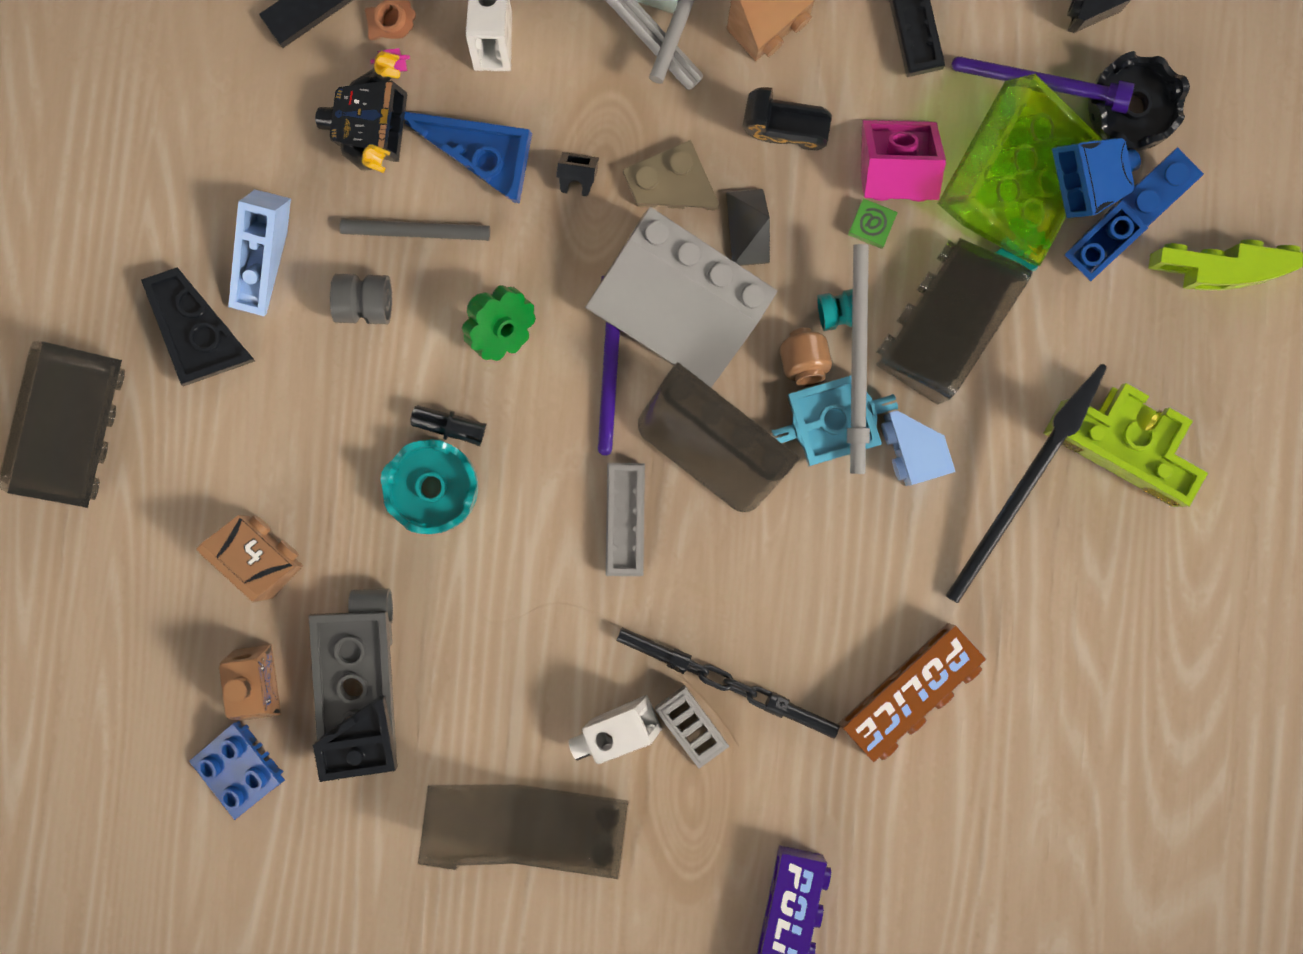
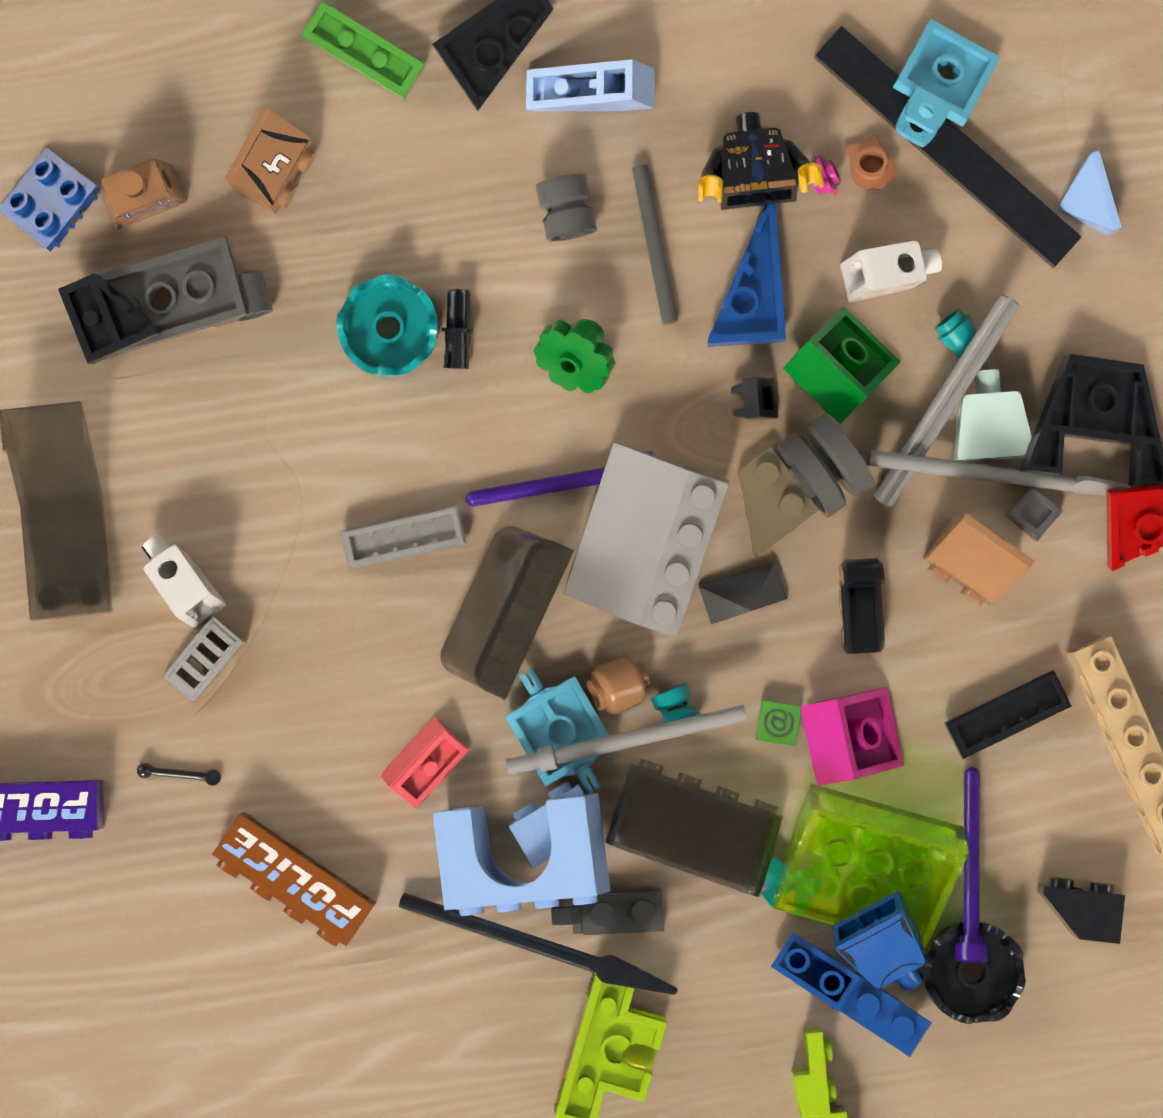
camera: 80 degrees right, 0 degrees up
(172, 450) = (363, 50): none -> bright green plate
(566, 88) = (841, 365): none -> green slope
(653, 117) = (831, 462): none -> dark grey wheel
(774, 704) = (248, 740): black piece -> none
(800, 745) = (212, 777): none -> black hinge
(832, 549) = (424, 762): none -> coral slope
(954, 527) = (475, 880): none -> light blue arch
(1007, 412) = (614, 913): none -> dark grey hinge

